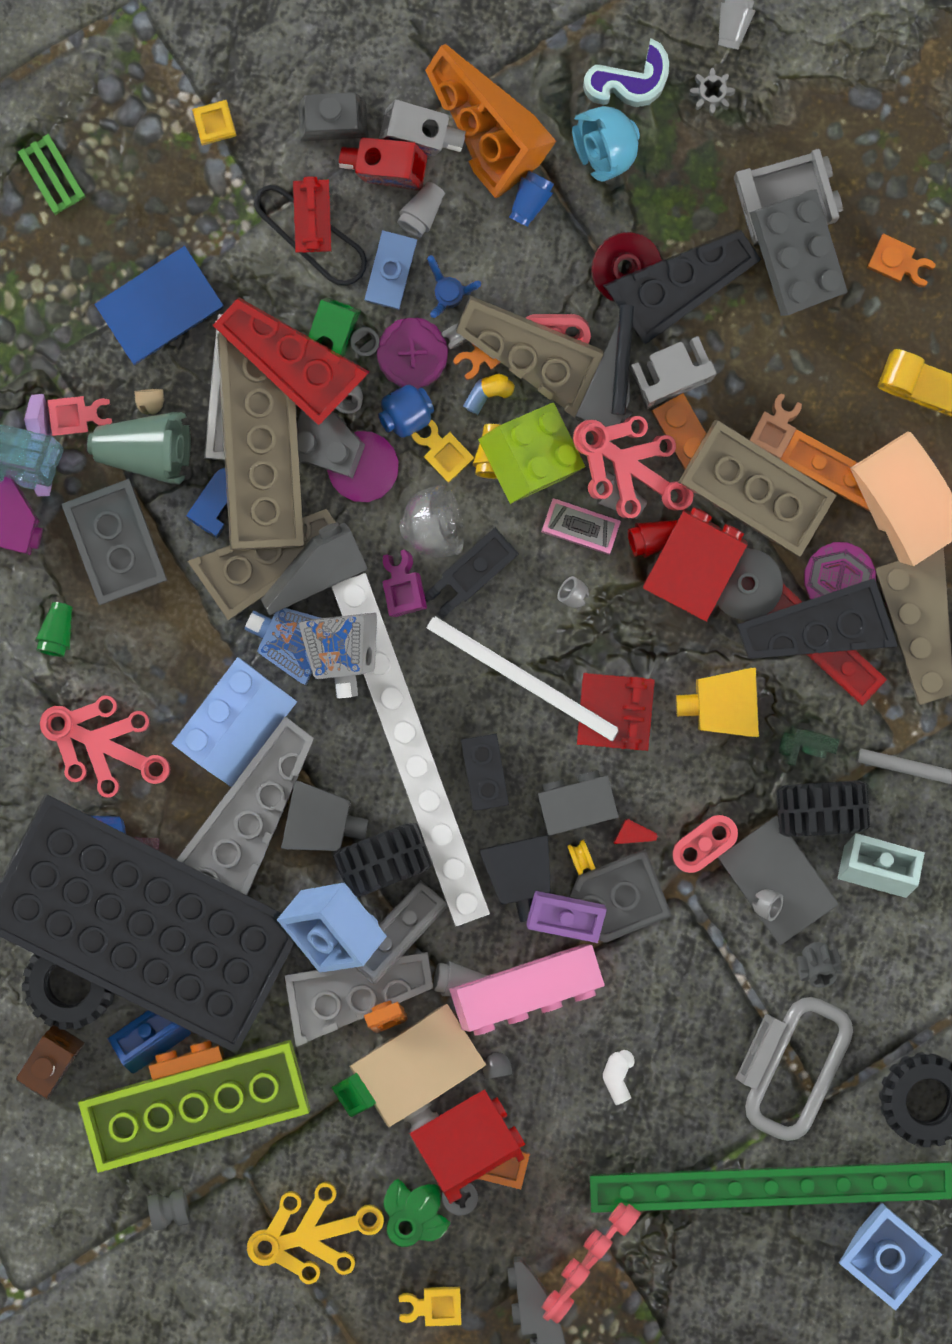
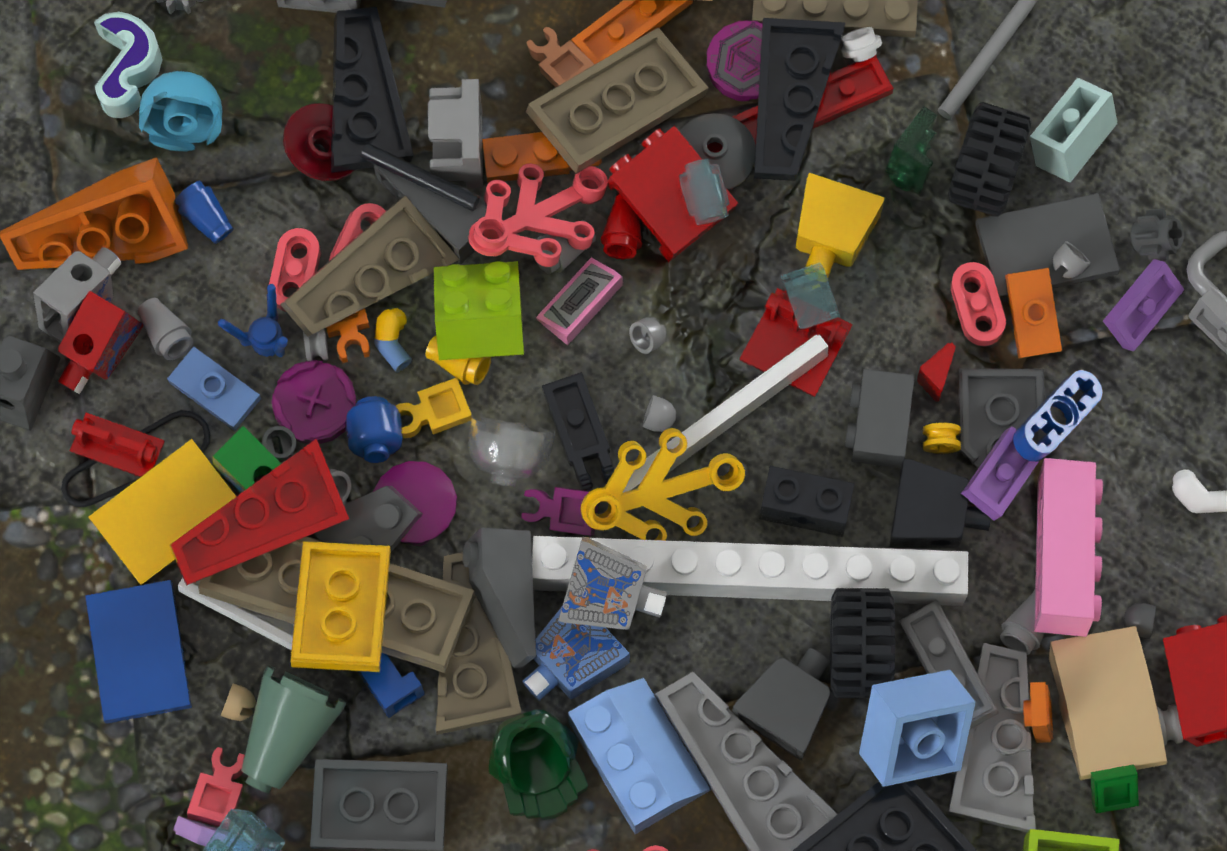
camera: 65 degrees left, 15 degrees down
(193, 649) = (537, 765): none -> dark green hair
(246, 449) = (340, 606): none -> yellow tile
(274, 277) = (161, 509): none -> yellow tile
(442, 652) = (655, 490): none -> yellow plant
(510, 628) = (659, 415): none -> light grey hinge
(511, 289) = (291, 271): none -> coral plate
(623, 930) = (1042, 417): none -> beam
(651, 709) = (810, 295): none -> clear light blue panel
(698, 592) = (704, 191): none -> clear light blue brick
(714, 890) = (1033, 313): none -> orange plate
(756, 975) = (1143, 305): none -> medium lavender plate
(889, 664) = (861, 44): none -> white plate

